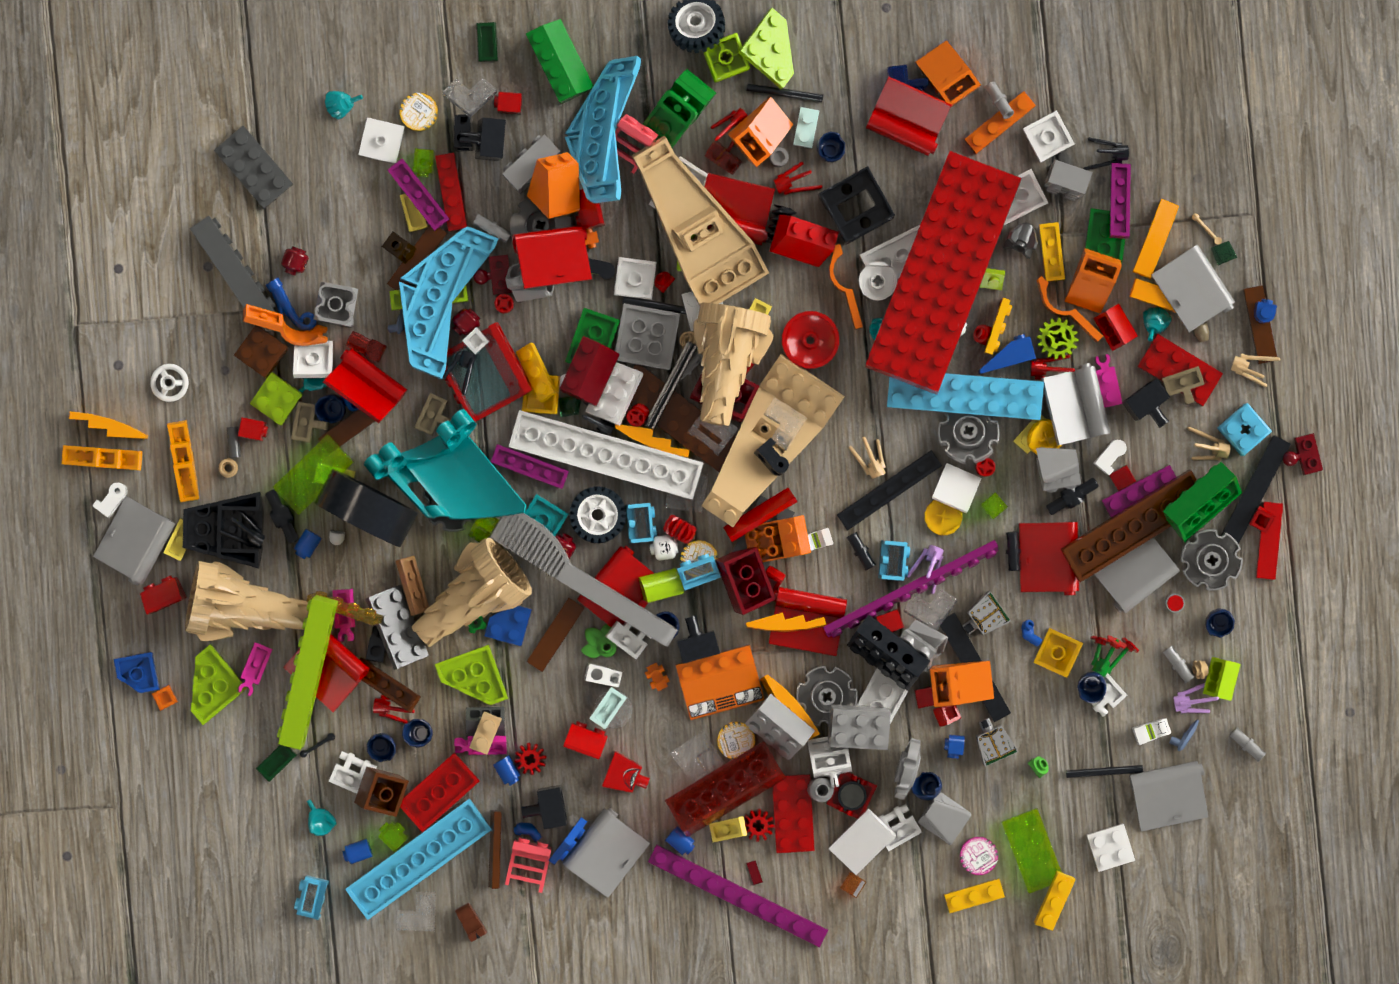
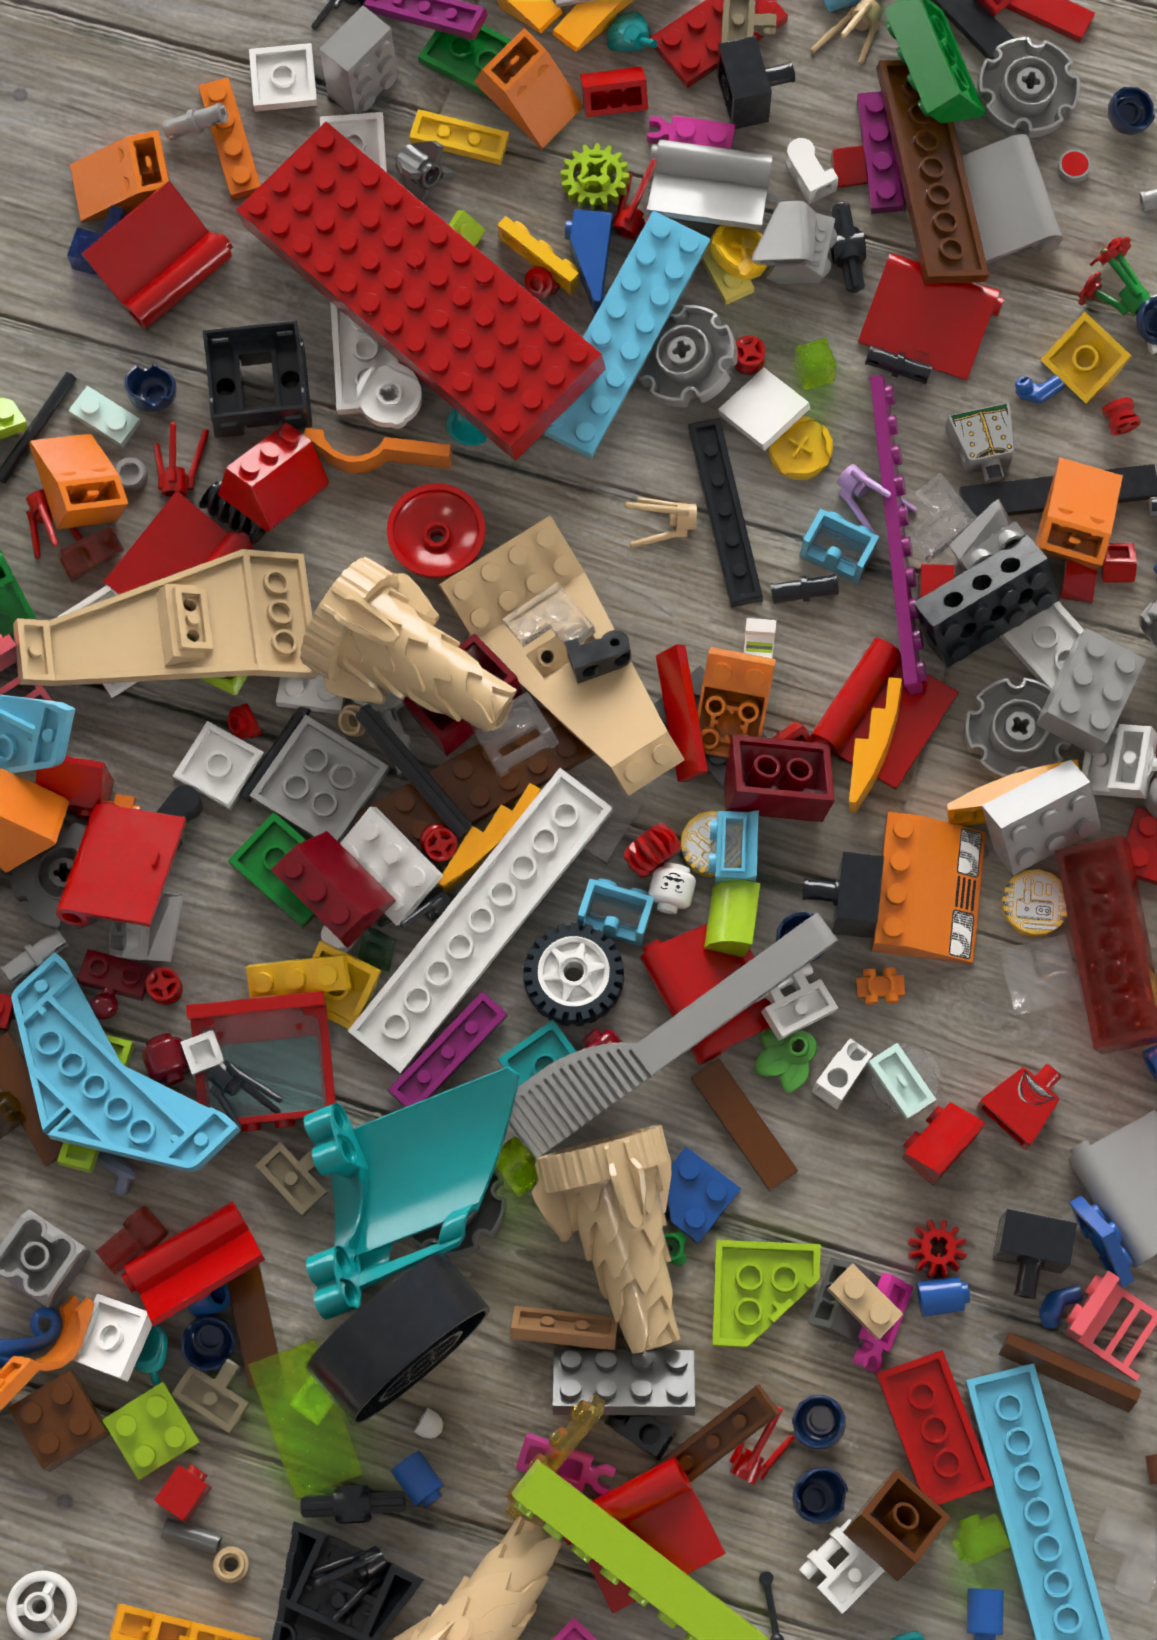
camera: 65 degrees left, 15 degrees down
(1033, 684) = (1121, 416): none -> red wheel
(1073, 314) = (571, 138): orange piece -> none

